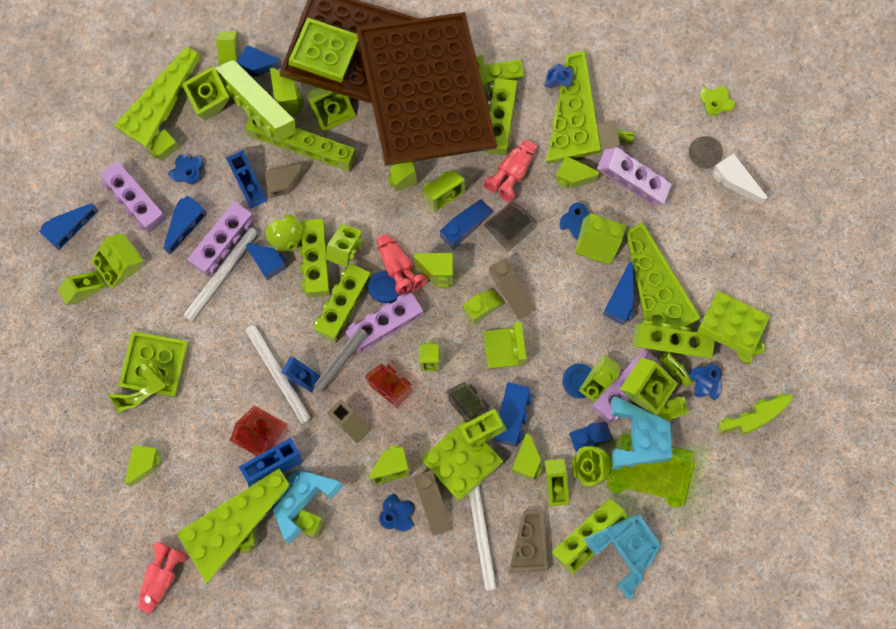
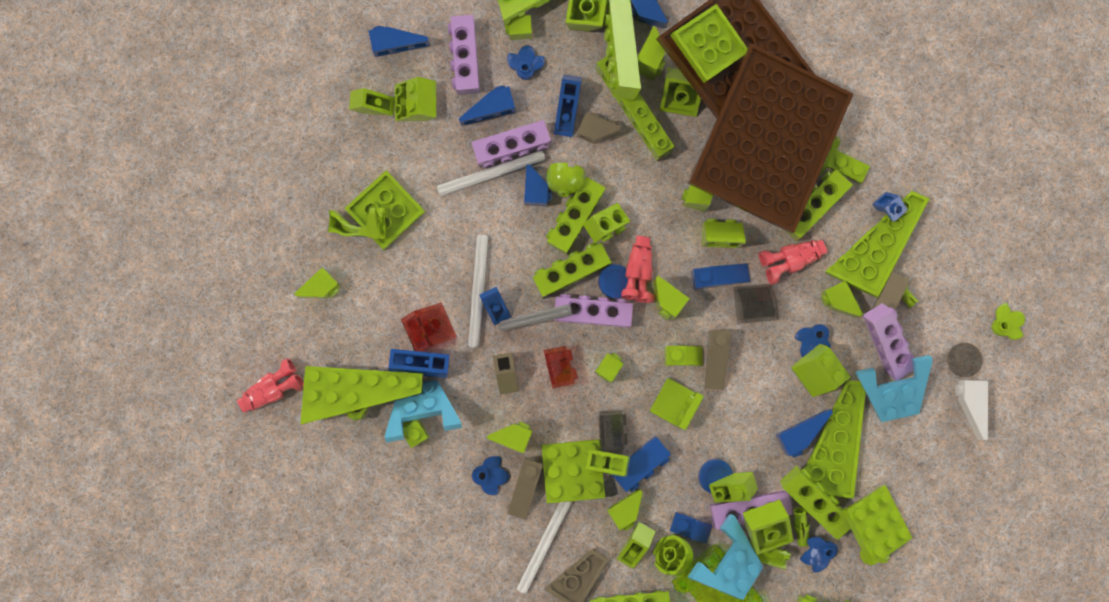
camera: 30 degrees right, 10 degrees up
(675, 216) = (899, 397): none -> medium azure wing

